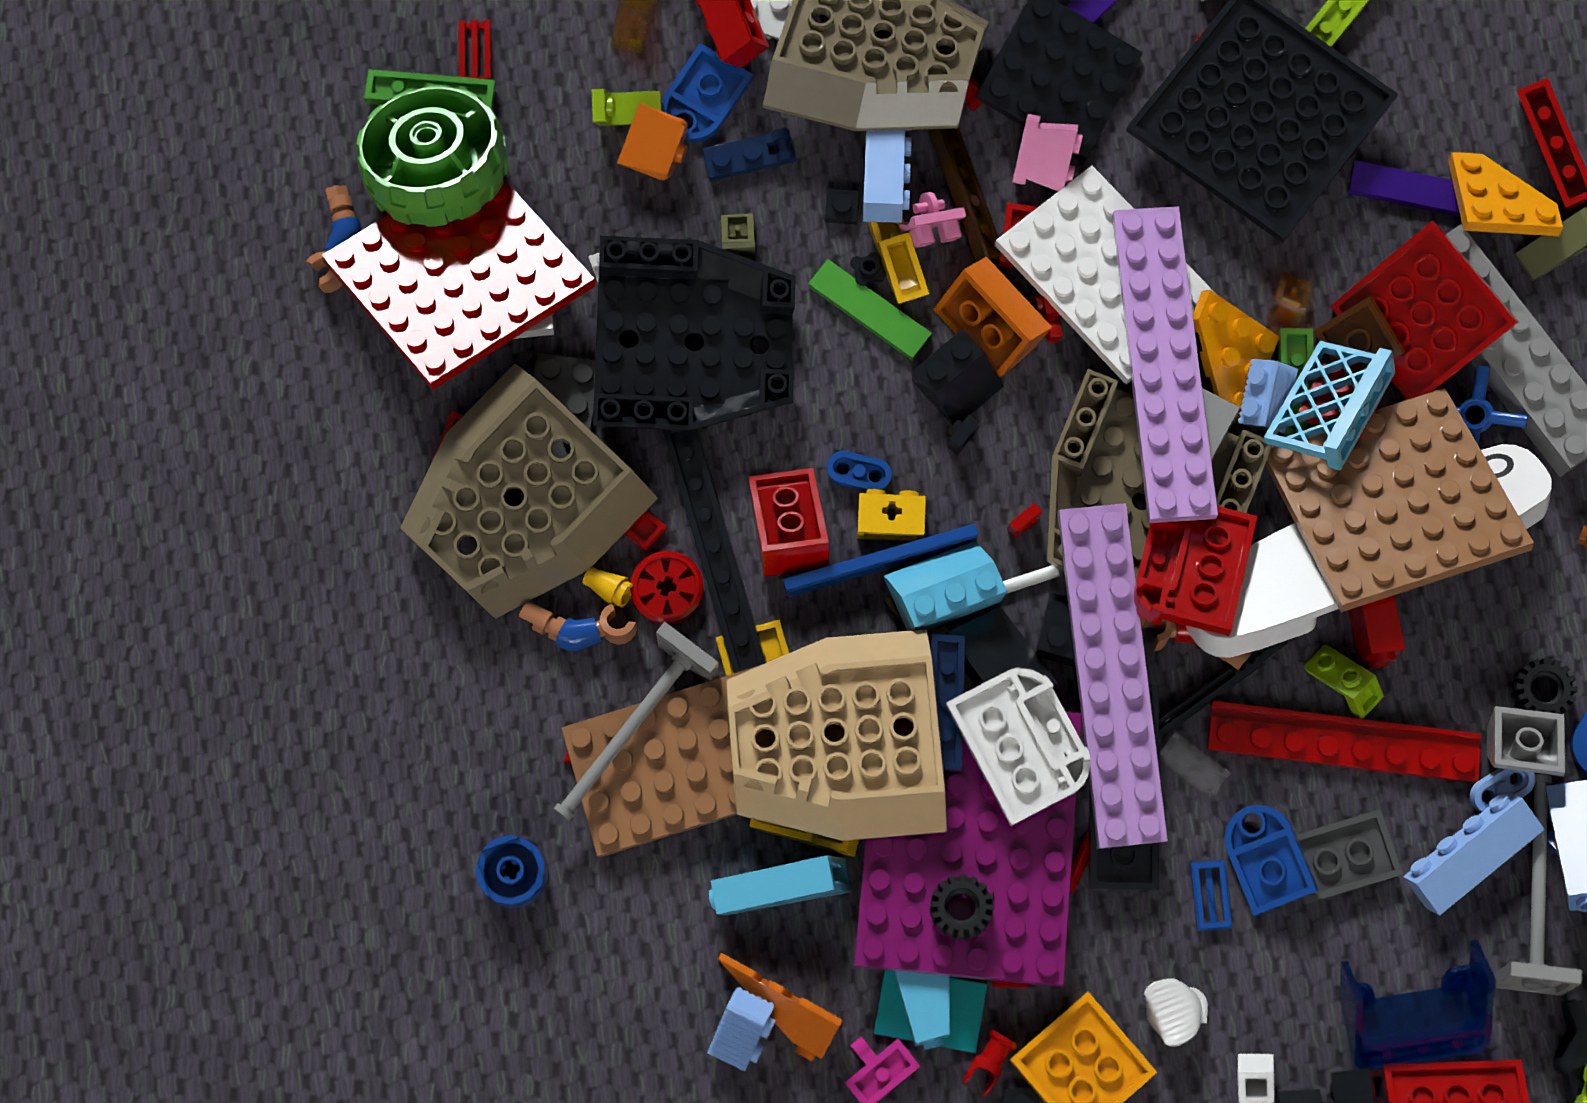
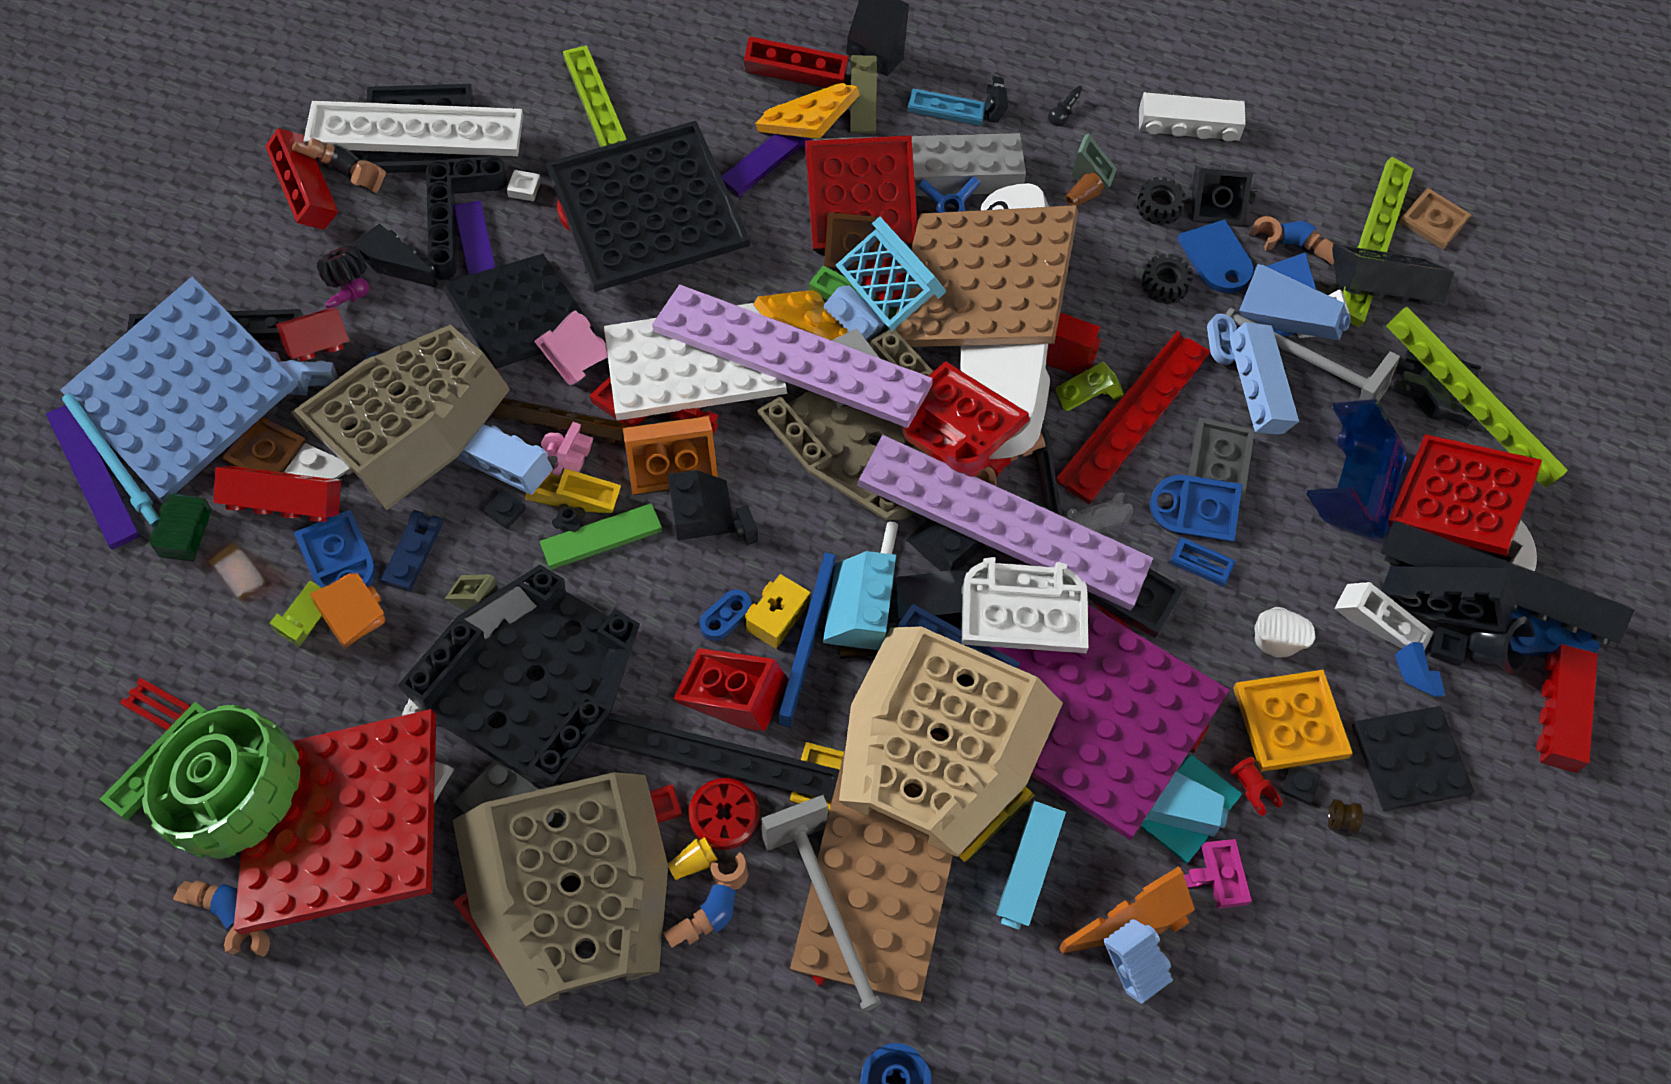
camera: 65 degrees left, 15 degrees down
(961, 886) = (1138, 708): black tyre -> none
(1024, 520) = (842, 521): red tile -> none
(1290, 300) = (793, 268): clear orange slope -> none
(1526, 740) = (1202, 302): light grey slope -> none

